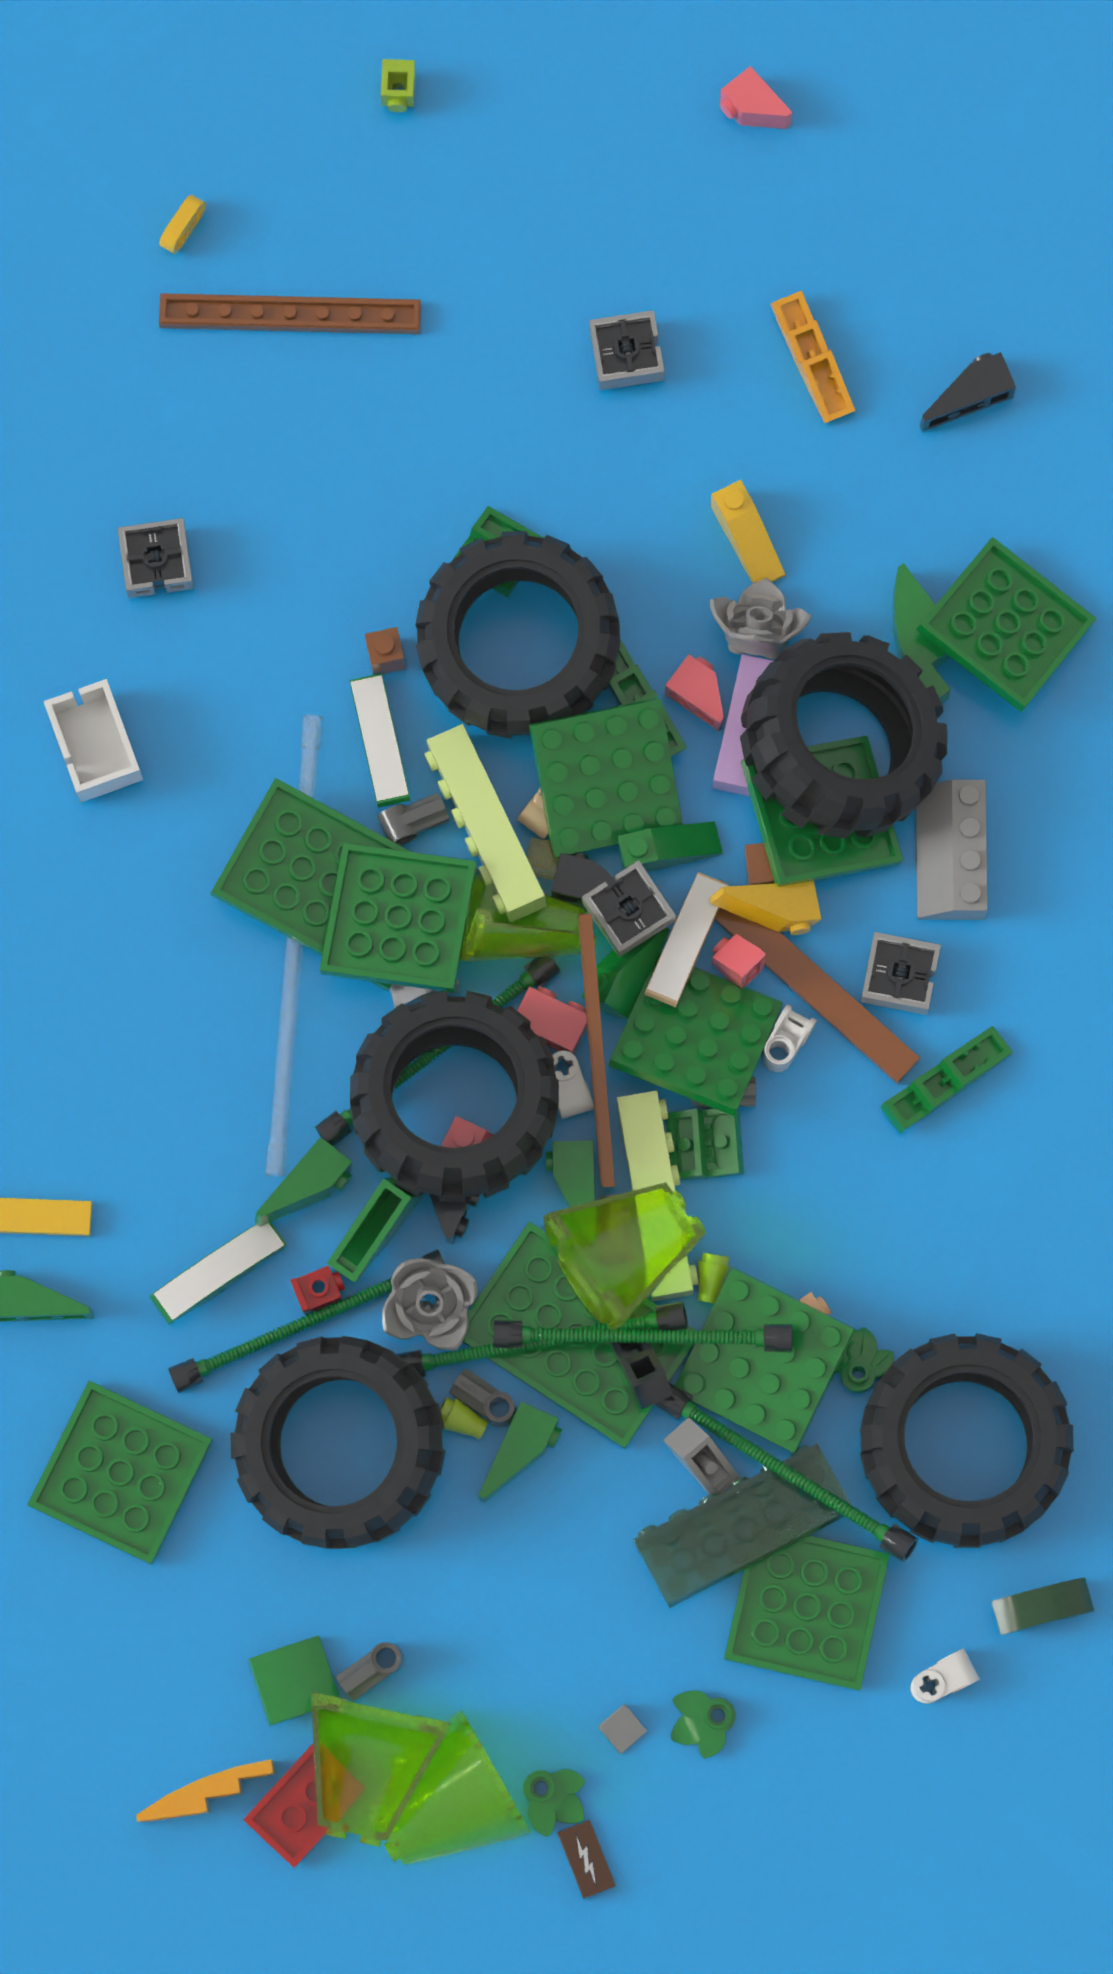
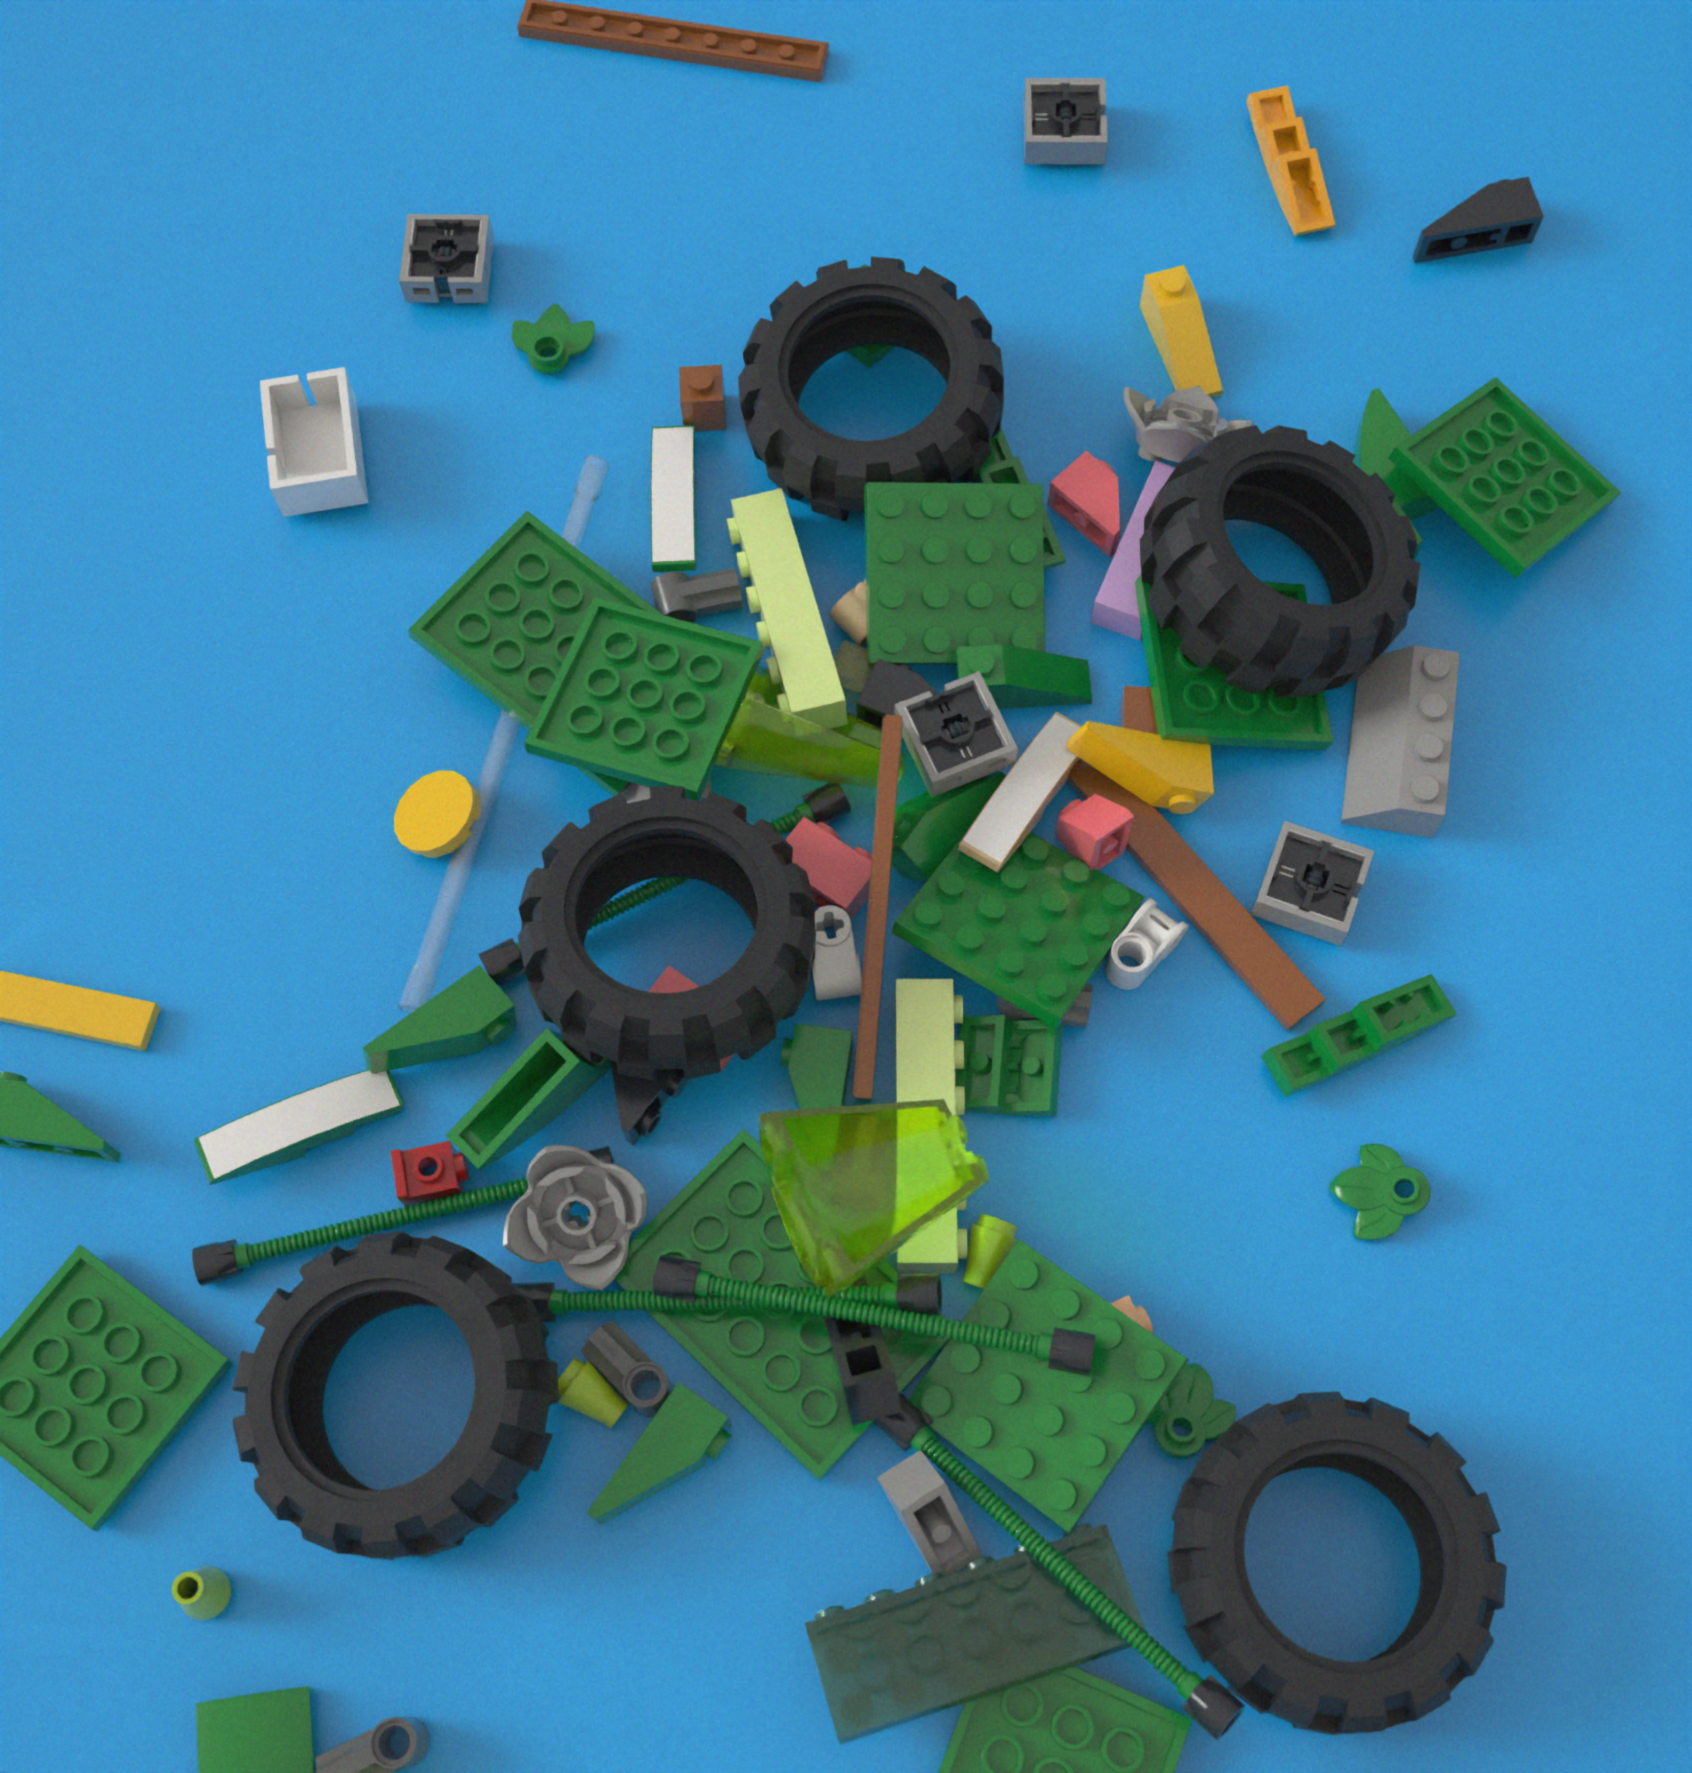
camera: 10 degrees right, 10 degrees down
(241, 1597) = (212, 1592): none -> lime cone
(253, 609) = (552, 336): none -> green plate
(259, 1026) = (437, 814): none -> yellow tile
(969, 1191) = (1373, 1188): none -> green plate

